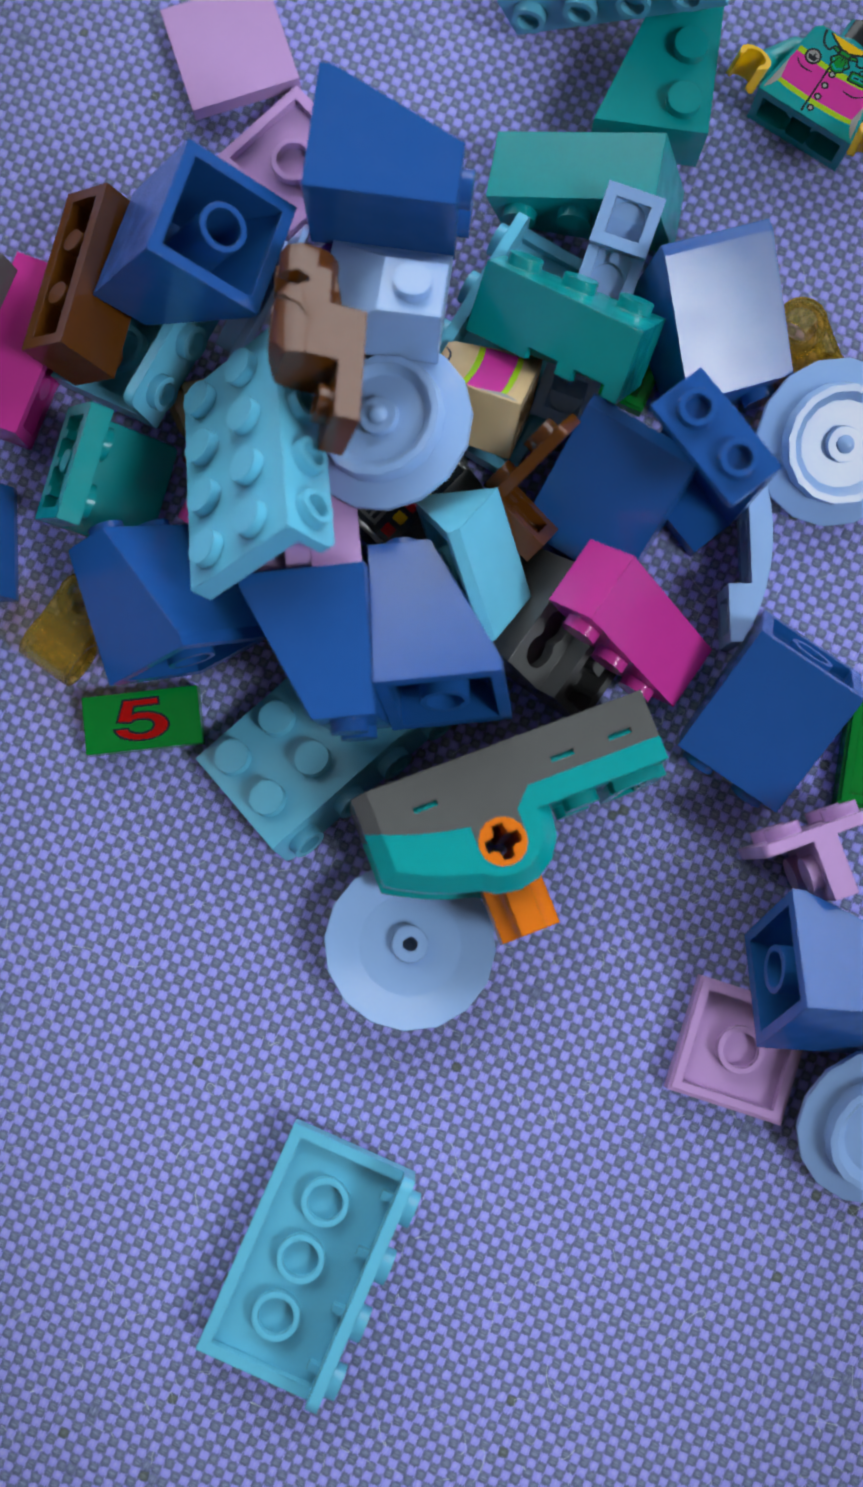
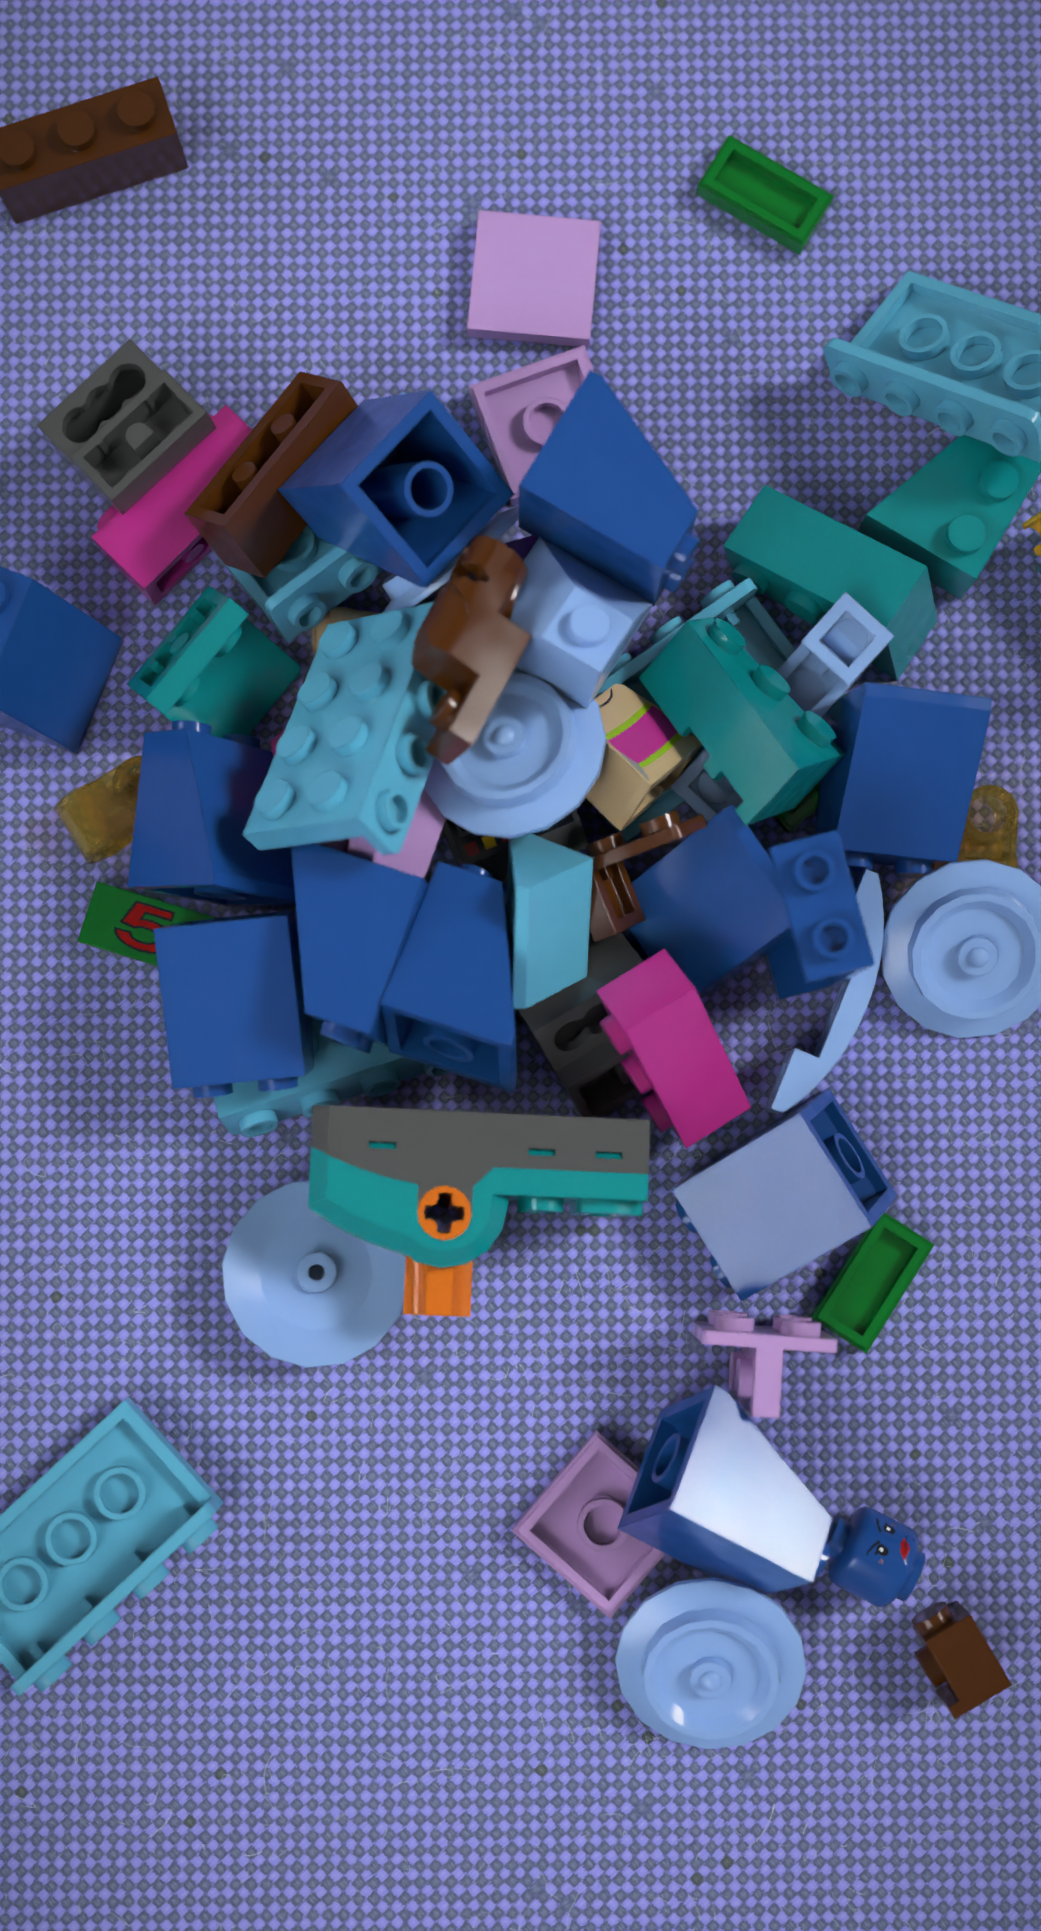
camera: 25 degrees right, 0 degrees up
(245, 743) = (234, 1003): none -> blue slope

